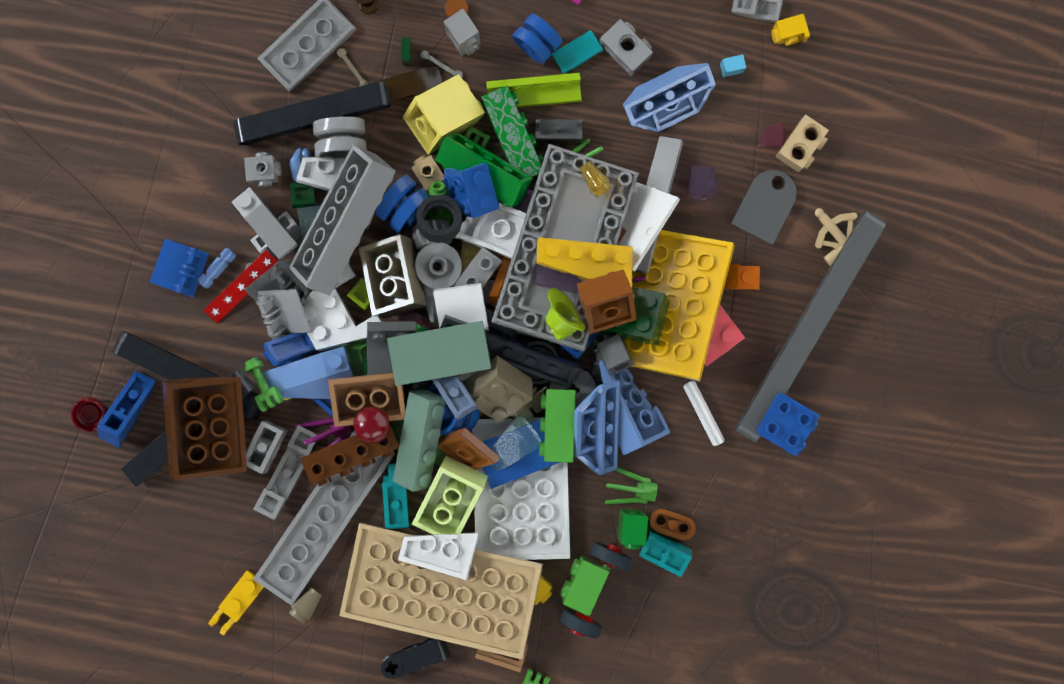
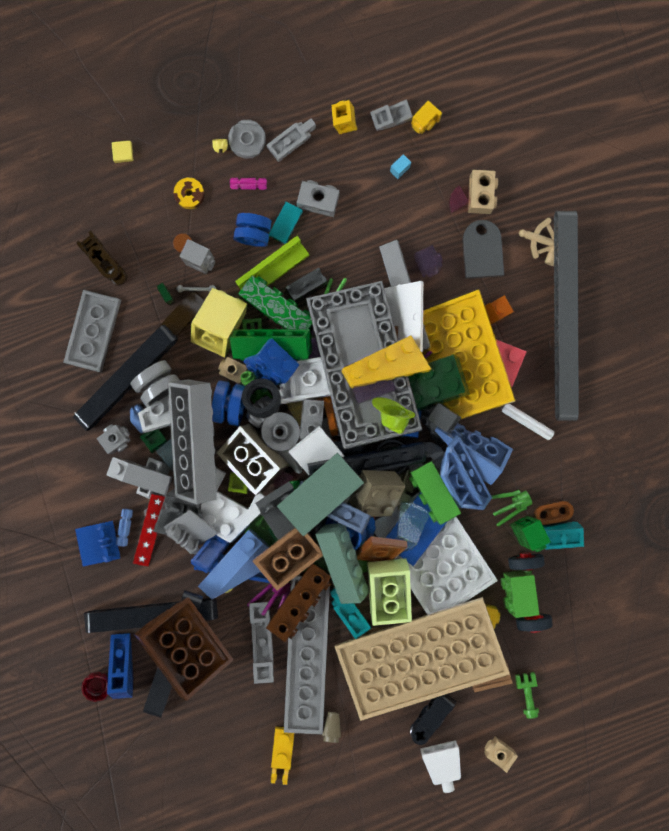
camera: 30 degrees left, 0 degrees up
(254, 365) = (215, 596): bright green hinge -> none
(265, 446) = (235, 633): light grey brick -> none
(342, 54) = (121, 323): dark tan hinge -> none
(371, 425) = (303, 574): dark red hair -> none
(441, 552) = (407, 633): white wing -> none
(595, 179) = (355, 303): clear yellow cone -> none
(607, 301) = (418, 384): dark orange slope -> none
(669, 97) = (370, 214): medium blue wedge -> none
(788, 424) = (592, 393): blue bracket -> none

